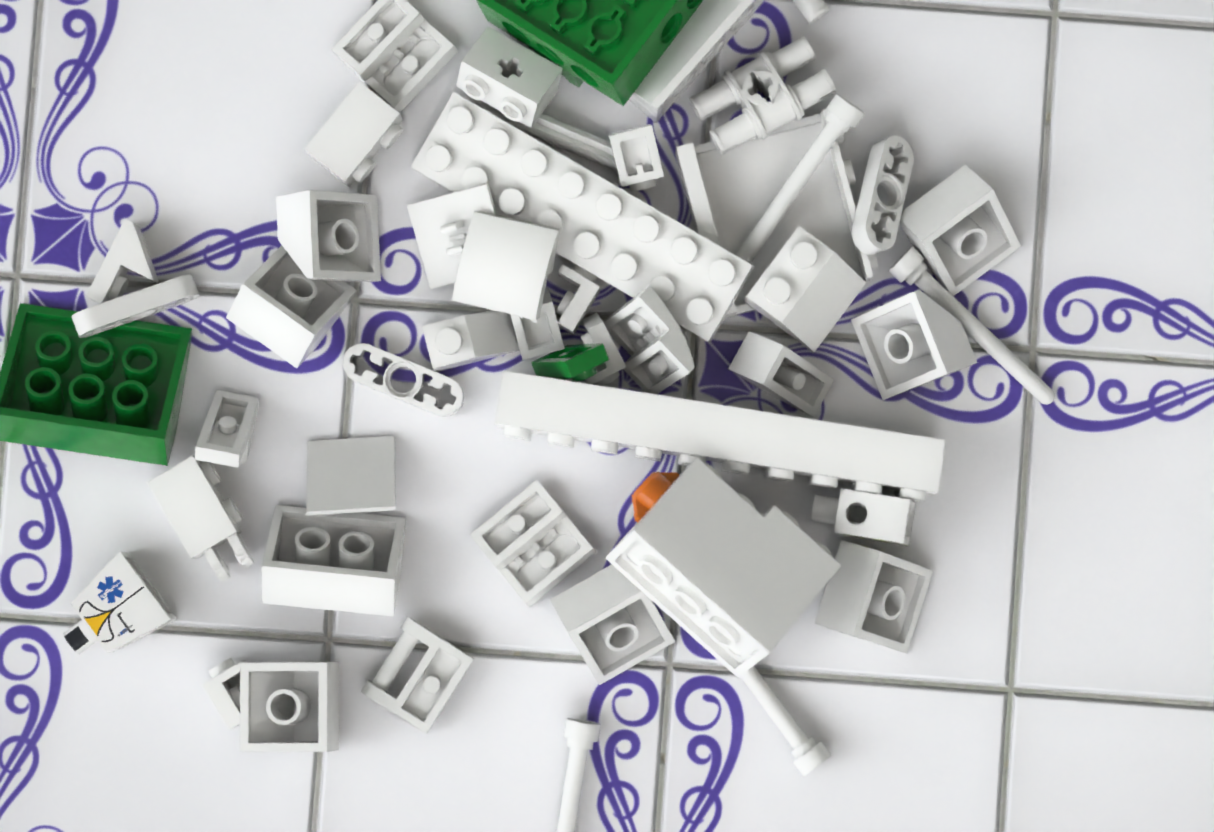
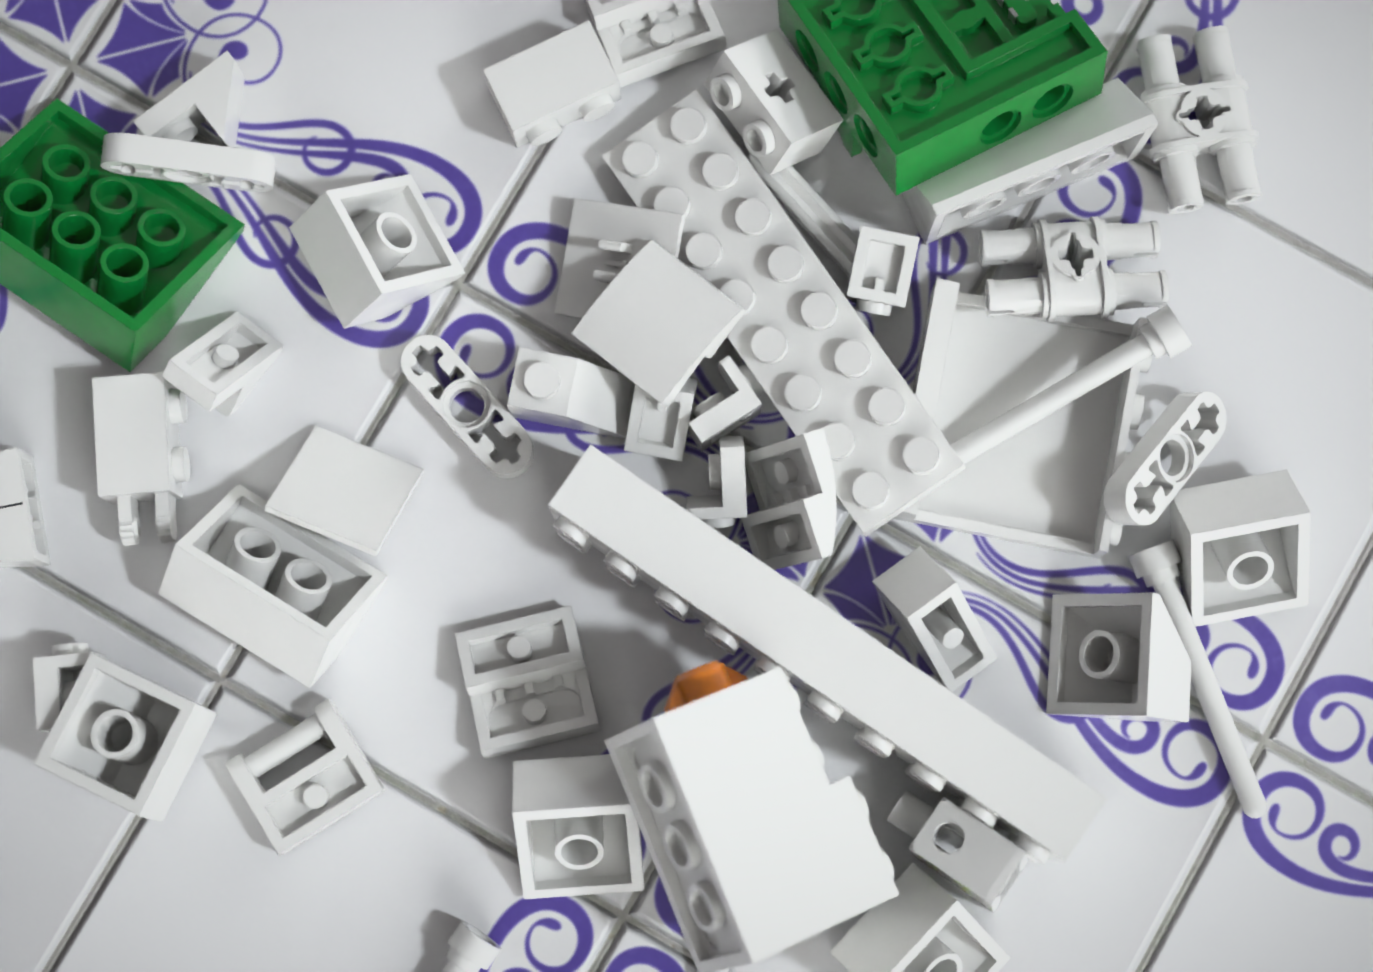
camera: 25 degrees right, 5 degrees down
(331, 234) = (466, 188): white slope -> none
(572, 362) = (683, 481): green plate -> none
(805, 289) = (1015, 527): white slope -> none

